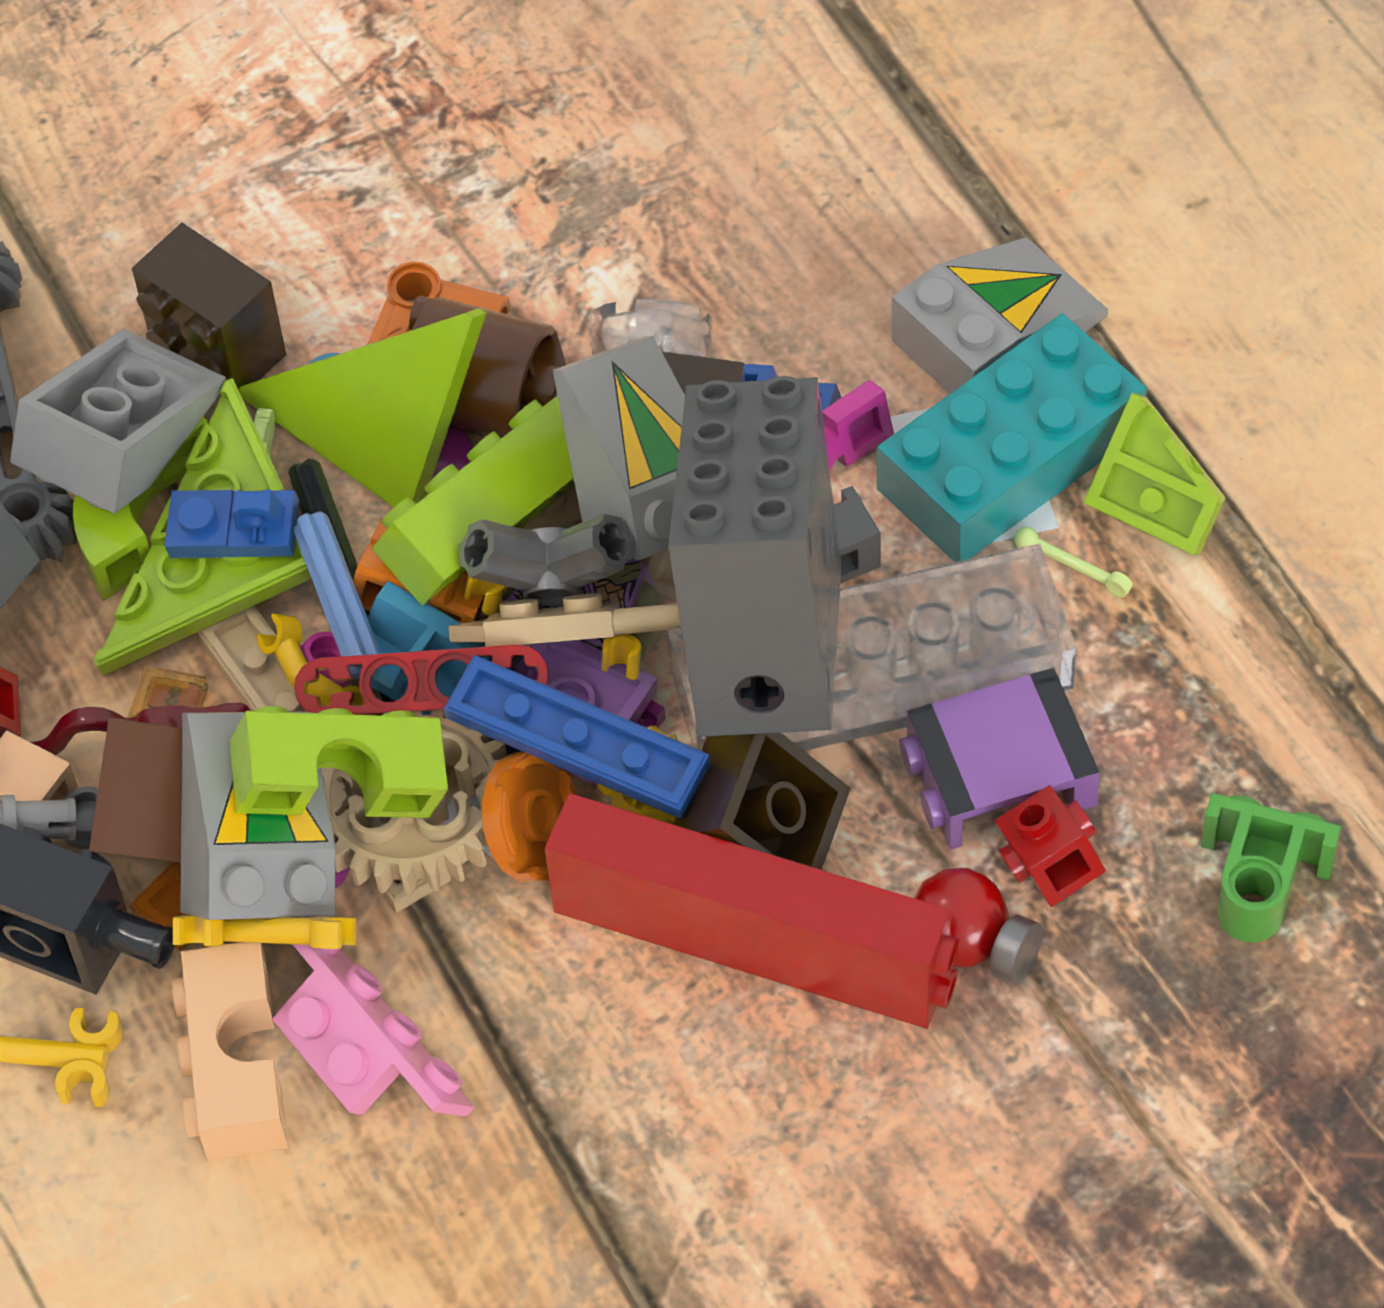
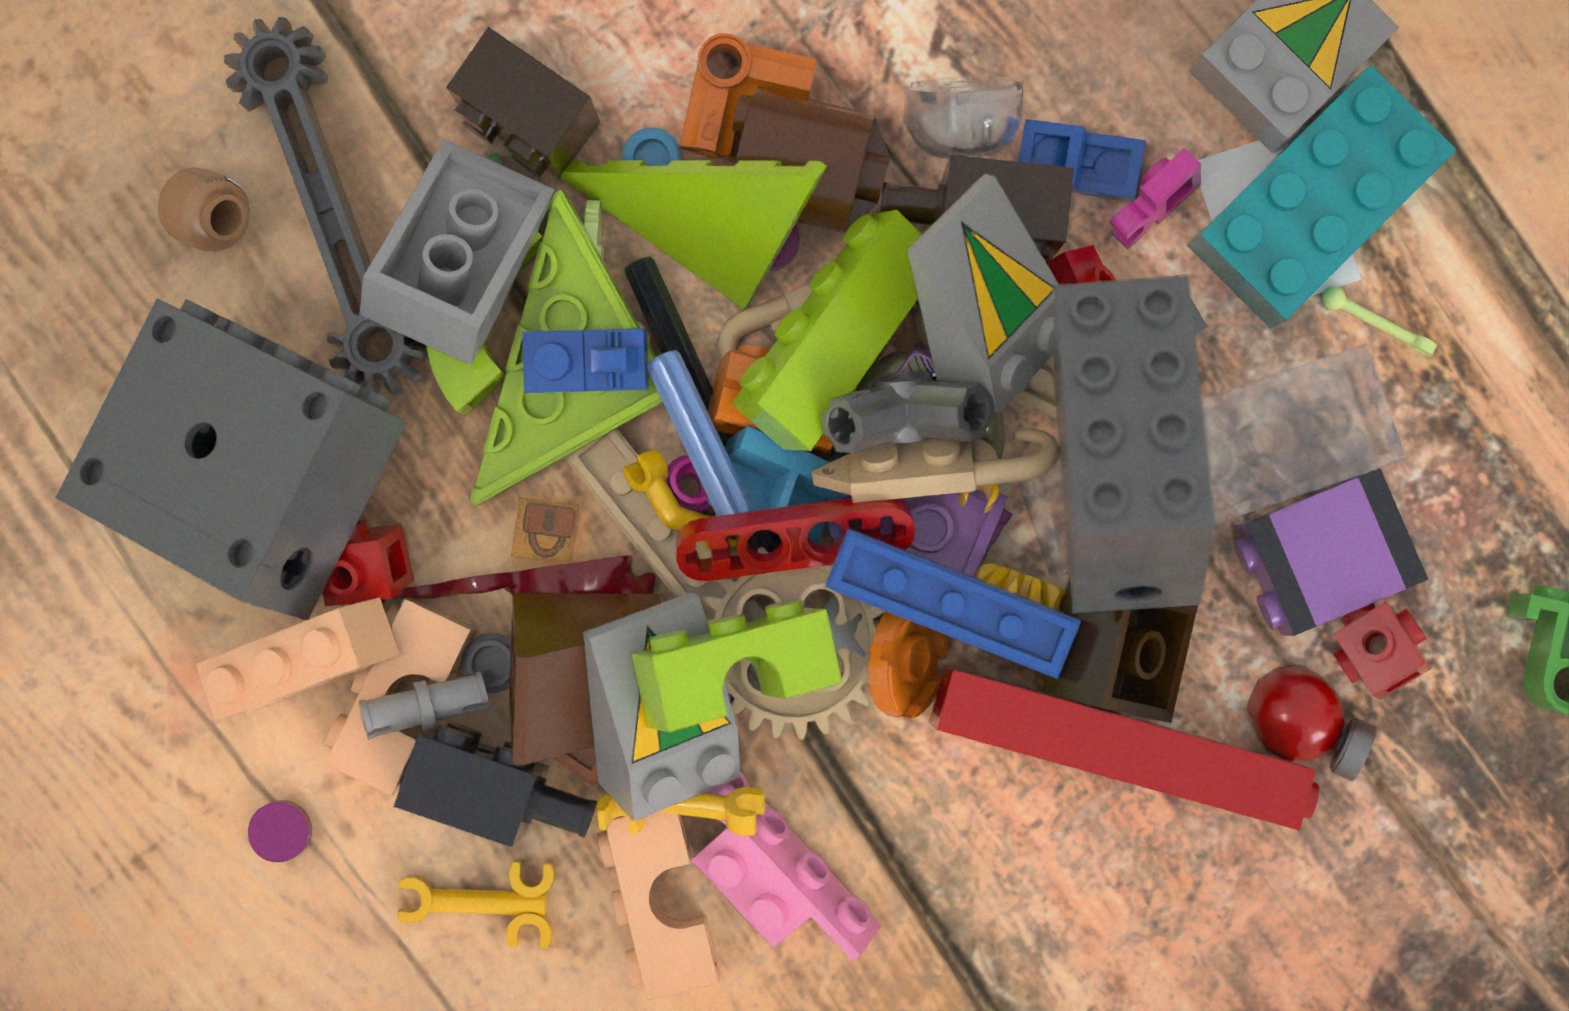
camera: 10 degrees left, 30 degrees up
(1155, 481) = (1460, 242): lime wing -> none

